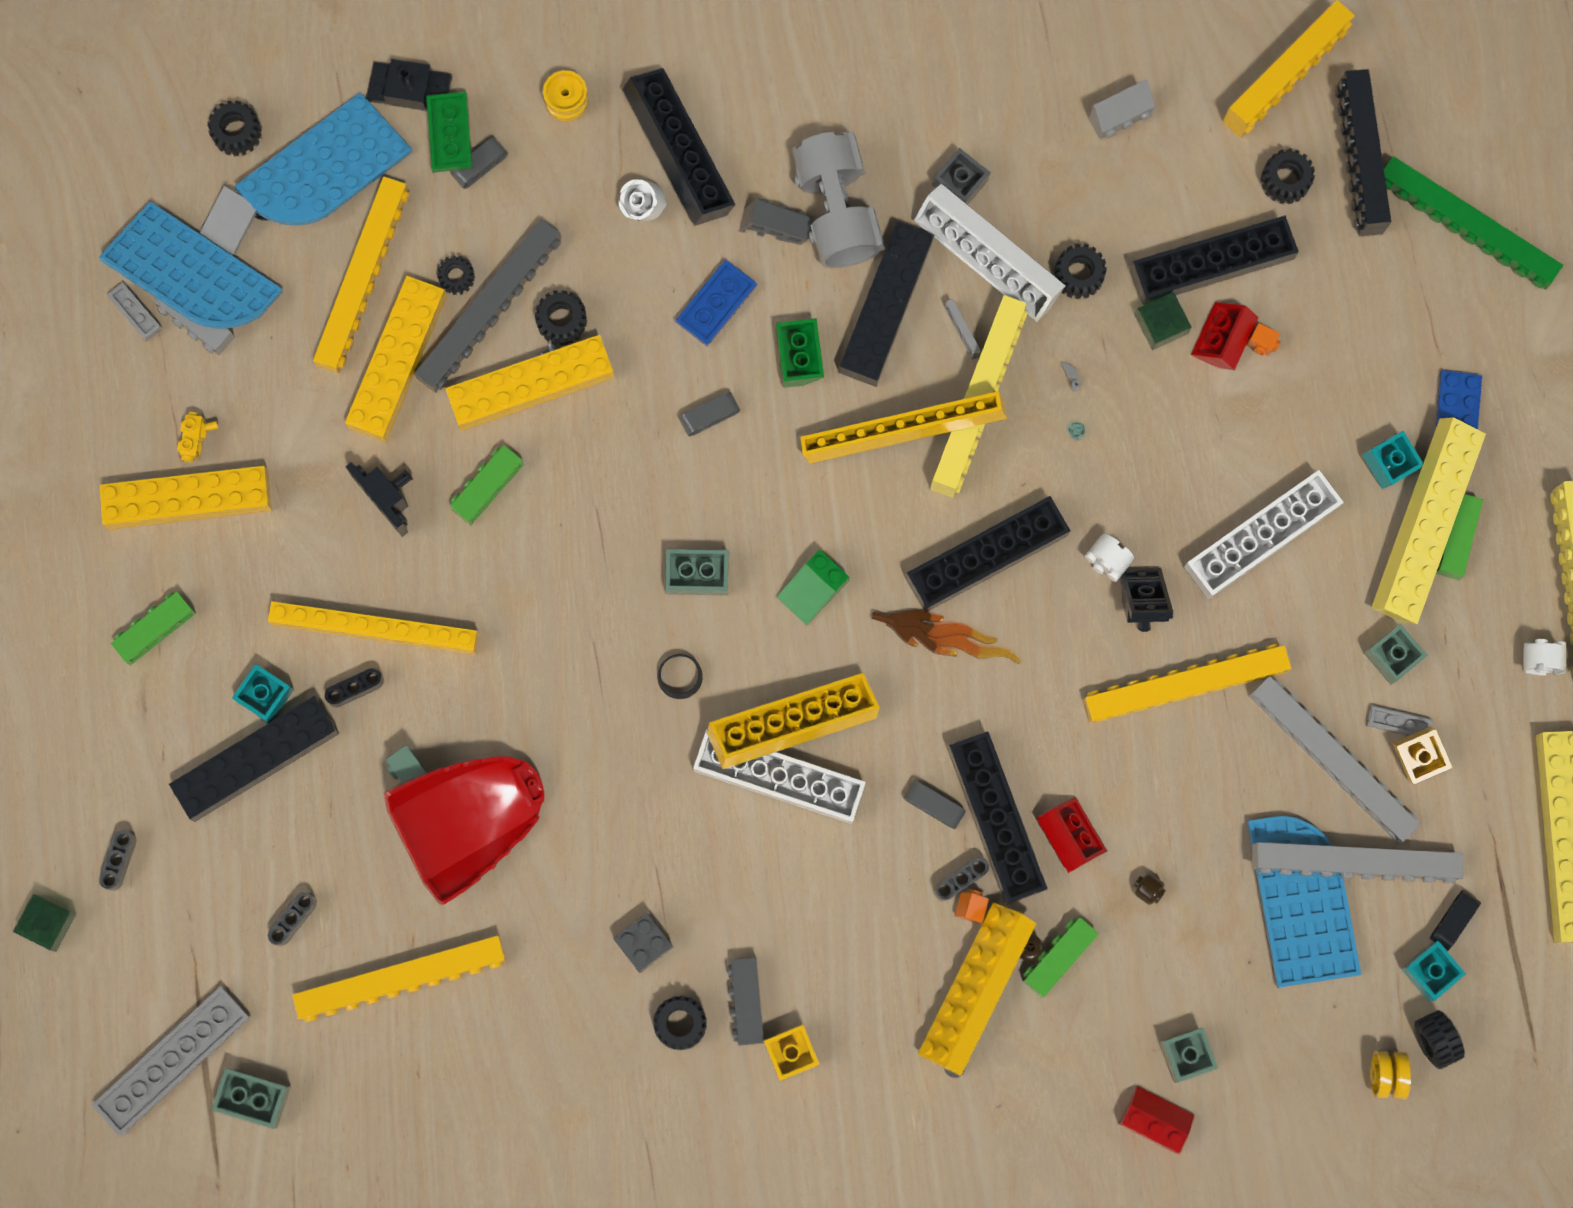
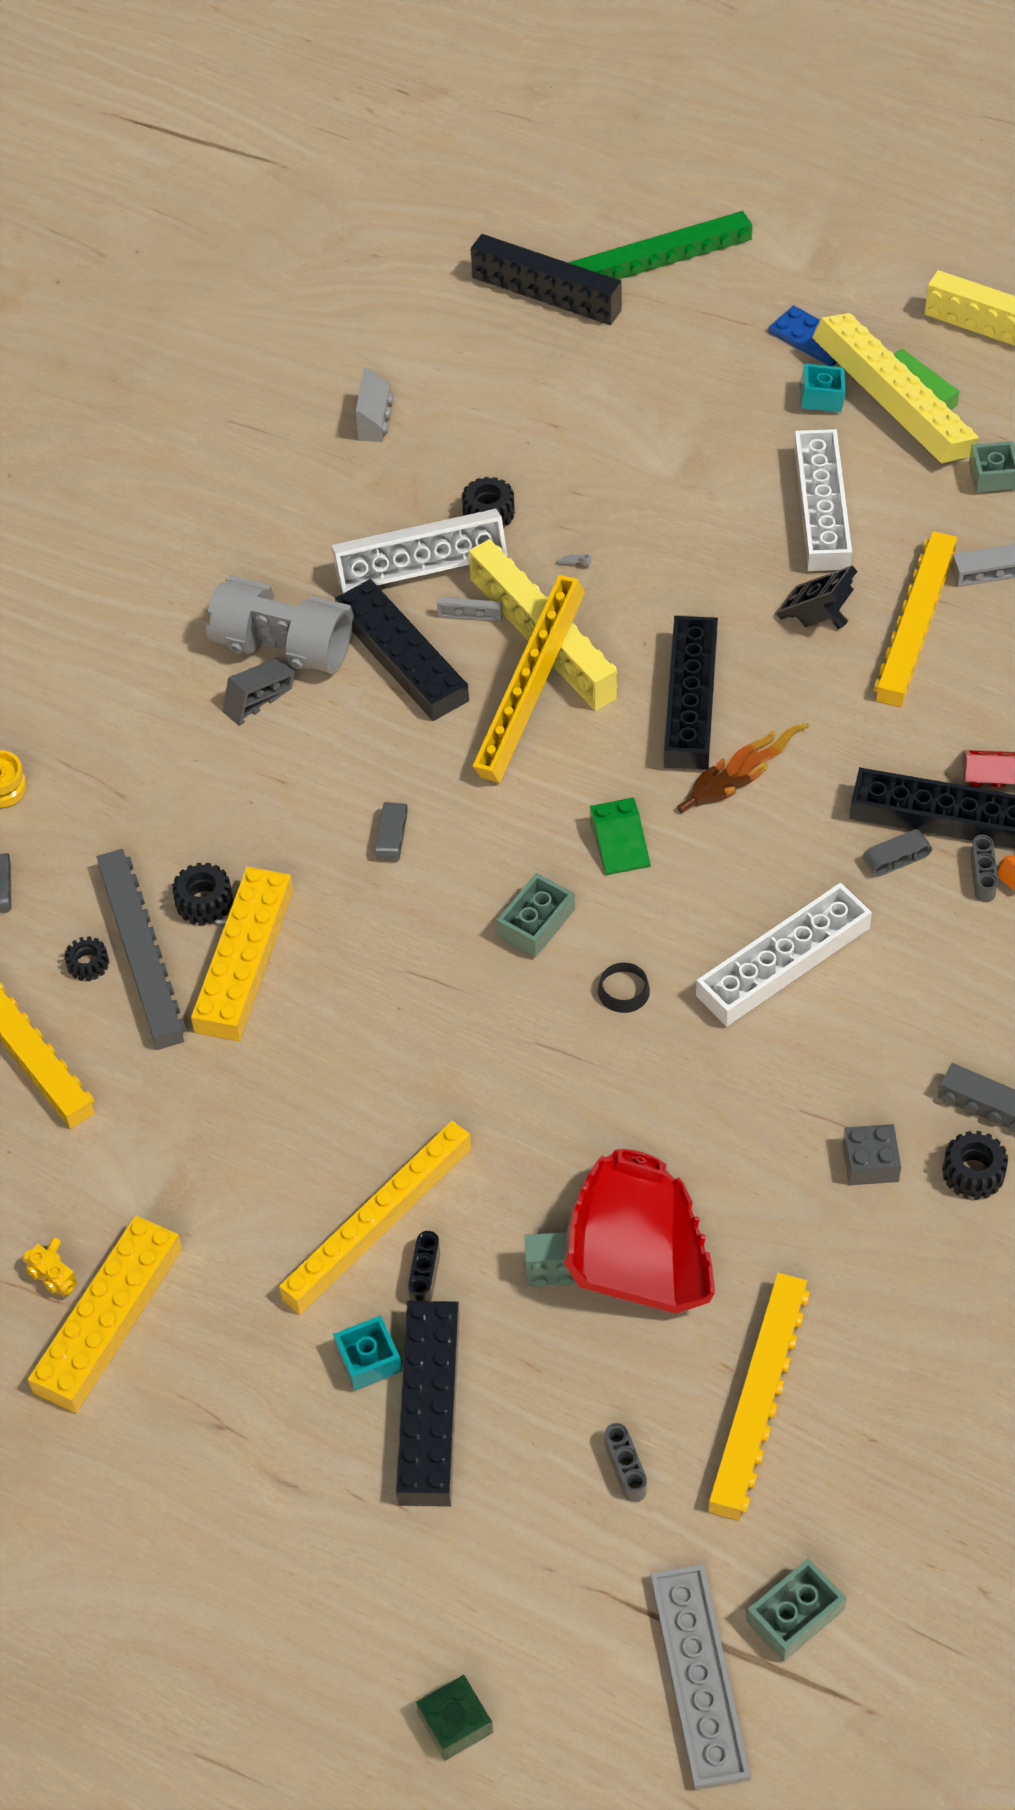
camera: 50 degrees left, 25 degrees down
(118, 871) = (441, 1613): dark grey beam -> none
(152, 628) = (216, 1423): bright green brick -> none
(384, 493) = (250, 1130): black brick -> none
(396, 359) = (126, 1050): yellow brick -> none
(486, 485) = (312, 1043): bright green brick -> none
(642, 200) = (141, 761): white brick -> none
(678, 146) = (125, 718): black brick -> none
(716, 303) = (292, 772): blue plate -> none
(792, 720) = (739, 905): yellow brick -> none
(799, 352) = (392, 730): green slope -> none
(962, 176) = (332, 531): dark grey brick -> none
(1079, 427) = (628, 579): clear light blue hinge -> none
(1109, 557) = (761, 607): white brick -> none
(1163, 321) = (578, 473): clear green brick -> none
(1214, 259) = (554, 415): black brick -> none
(1225, 335) = (624, 441): red slope -> none
(1264, 340) = (649, 419): orange brick -> none
(1288, 69) = (435, 290): yellow brick -> none
(1295, 163) = (523, 336): black tyre -> none

